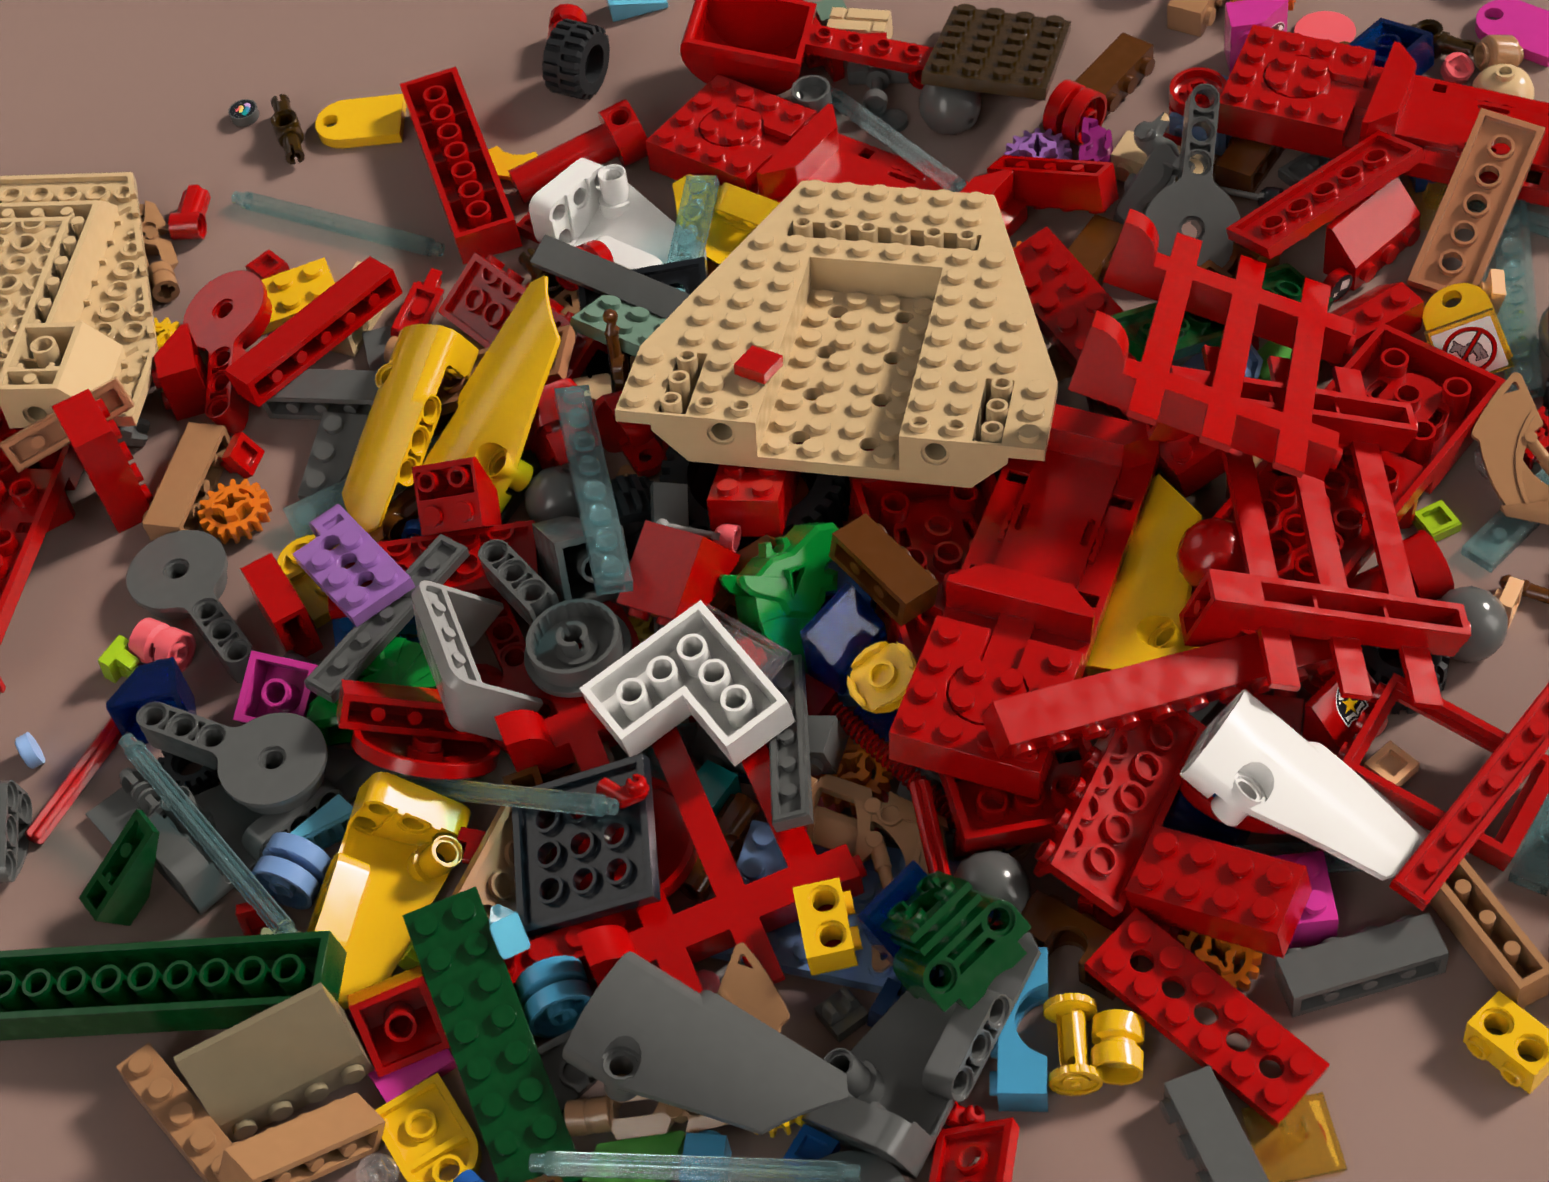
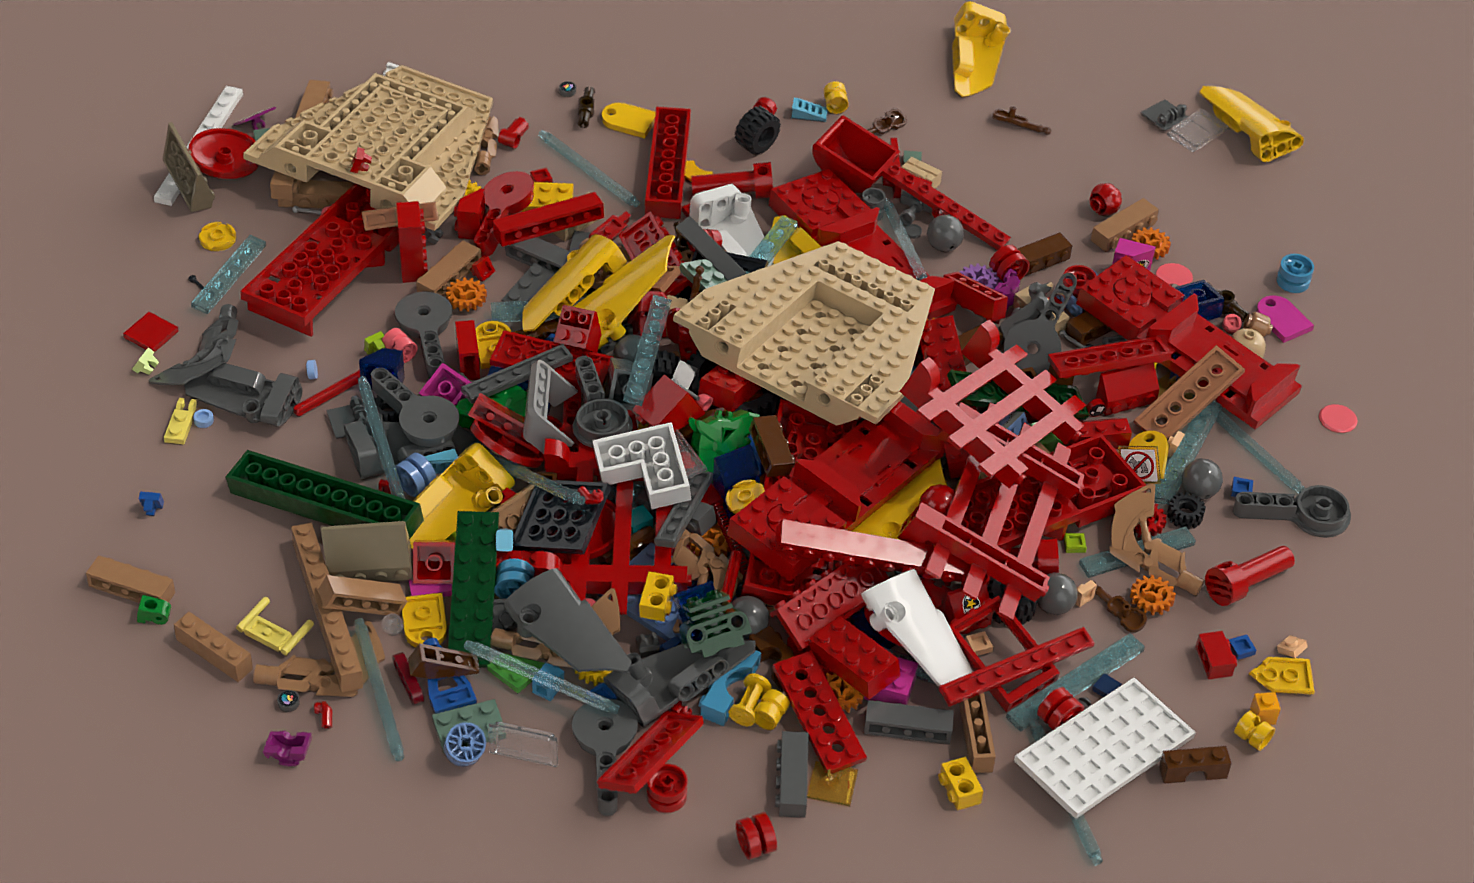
camera: 10 degrees right, 5 degrees down
(125, 874) = (332, 444): dark green slope -> none
(343, 584) = (510, 328): medium lavender hinge -> none
(758, 364) = (757, 321): red tile -> none
(997, 52) = (984, 216): dark brown plate -> none

